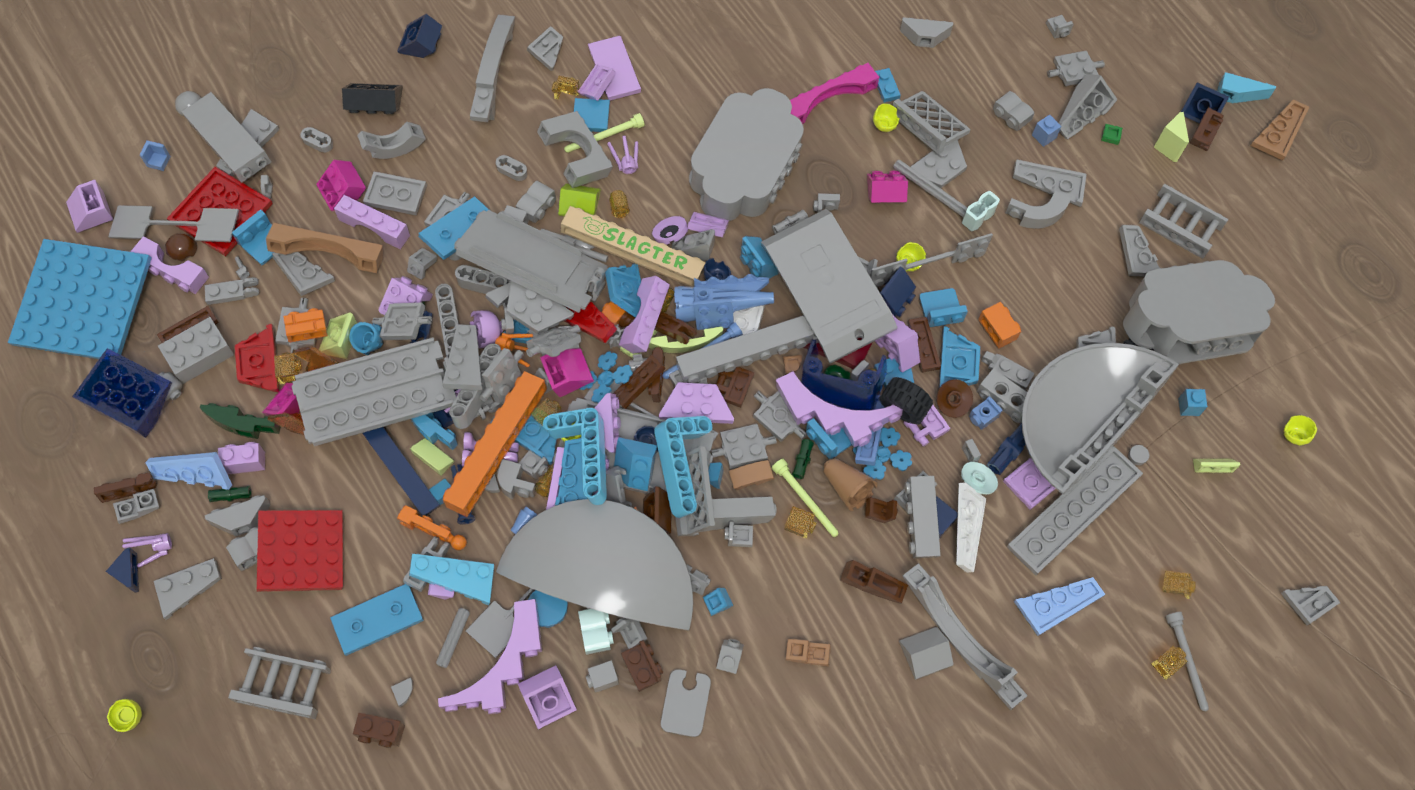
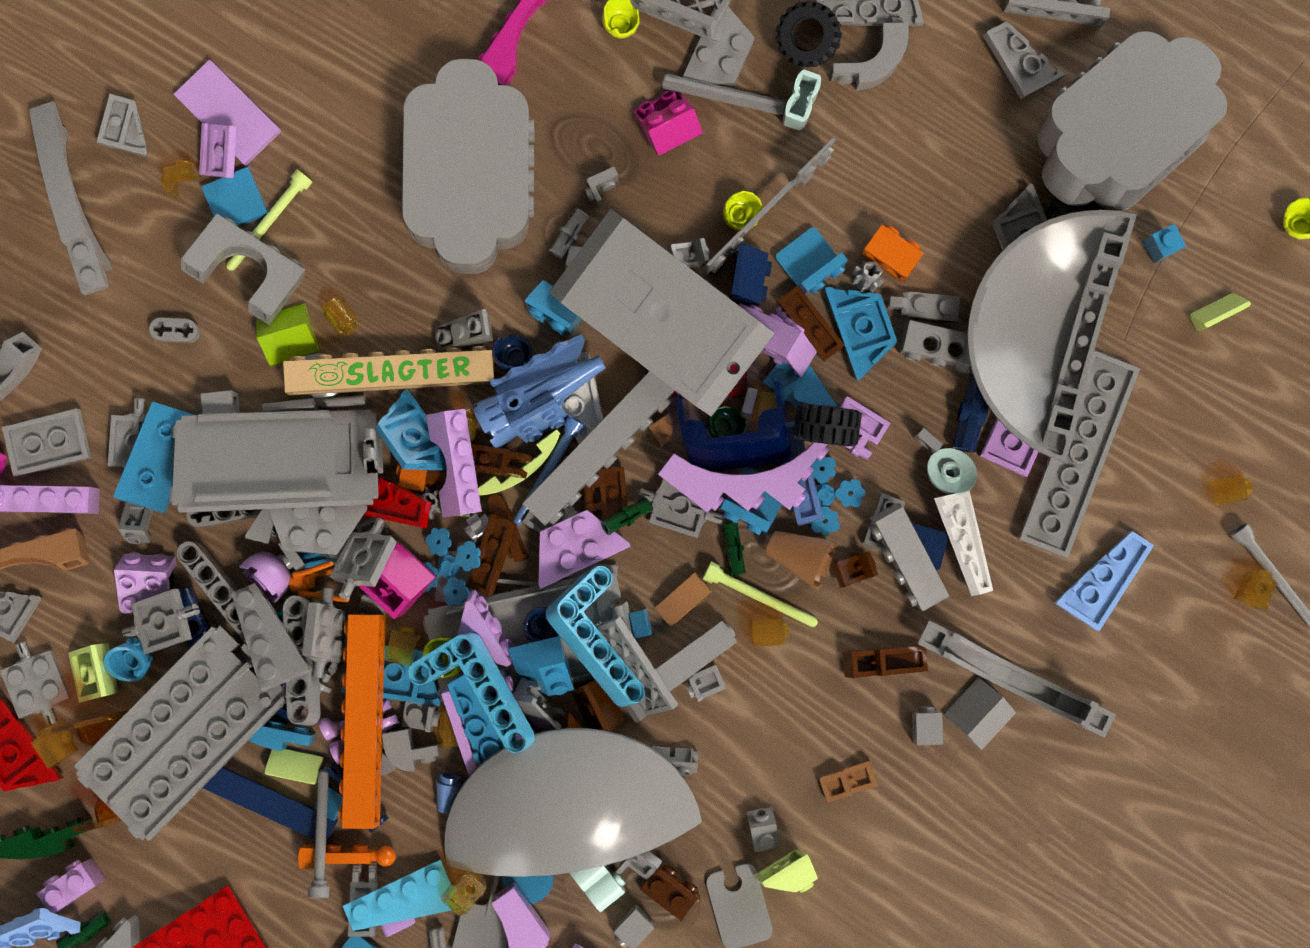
camera: 25 degrees left, 20 degrees up
(283, 402) = (75, 799): dark pink slope -> none
(305, 325) = (44, 686): orange brick -> none
(404, 532) = (319, 885): none -> light grey piece
(497, 590) = (463, 892): none -> clear yellow brick
(536, 201) = (233, 365): light grey brick -> none
(628, 164) = (321, 251): lavender plant -> none
(670, 229) = (424, 323): lavender tile -> none
(702, 222) = (467, 290): lavender plate -> none
(718, 601) = (718, 771): dark azure slope -> none
(729, 399) = (626, 516): none -> dark green pin
(734, 690) = (790, 873): none -> yellowish green slope
(743, 446) = (656, 567): light grey plate -> none
(883, 640) = (927, 726): none -> light grey brick
(962, 398) = (888, 380): reddish brown dish -> none
(976, 331) = (868, 276): none -> light grey gear
(991, 413) = (928, 372): medium blue brick -> none
(1000, 162) = (787, 28): none -> black tyre
(1138, 455) = (1124, 343): light grey tile -> none

